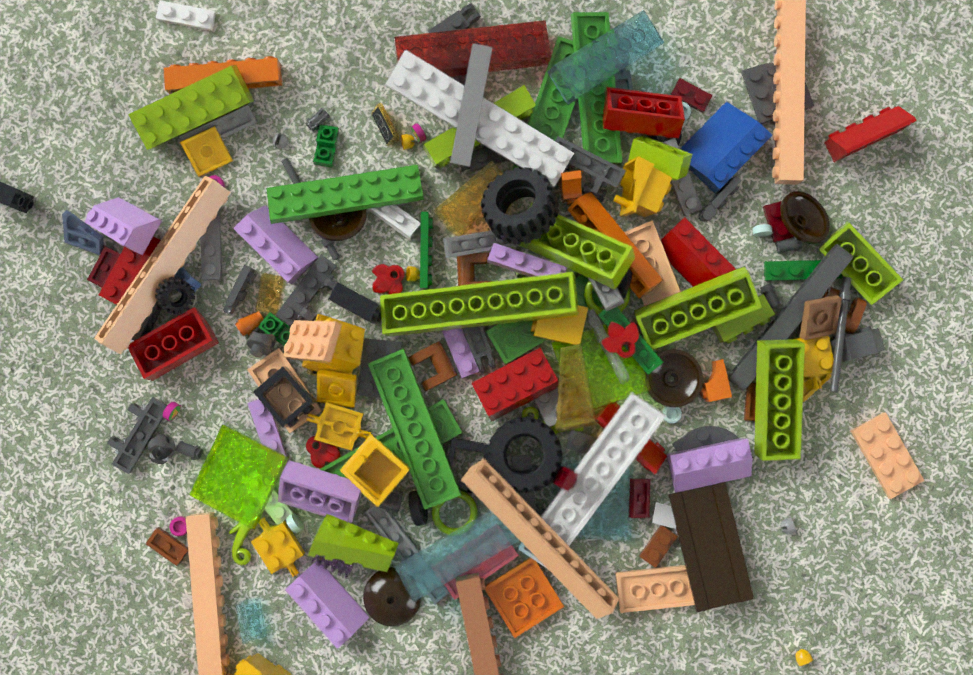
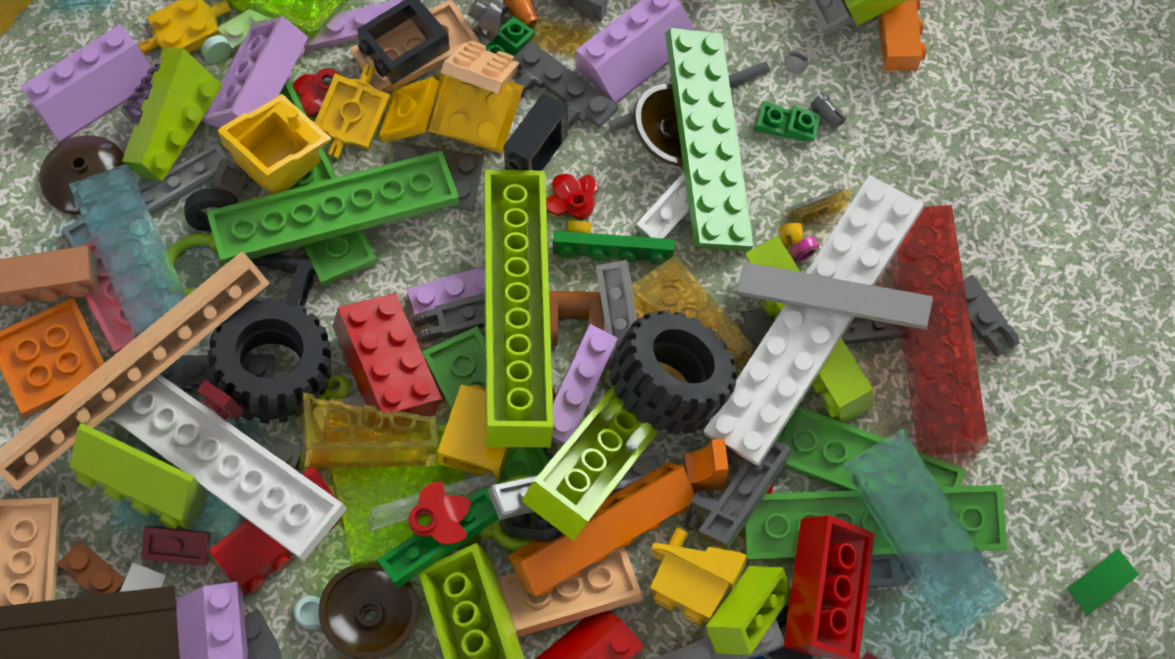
camera: 90 degrees right, 20 degrees down
(440, 362) = (434, 259): dark orange connector -> none
(607, 526) = (136, 478): none -> lime slope

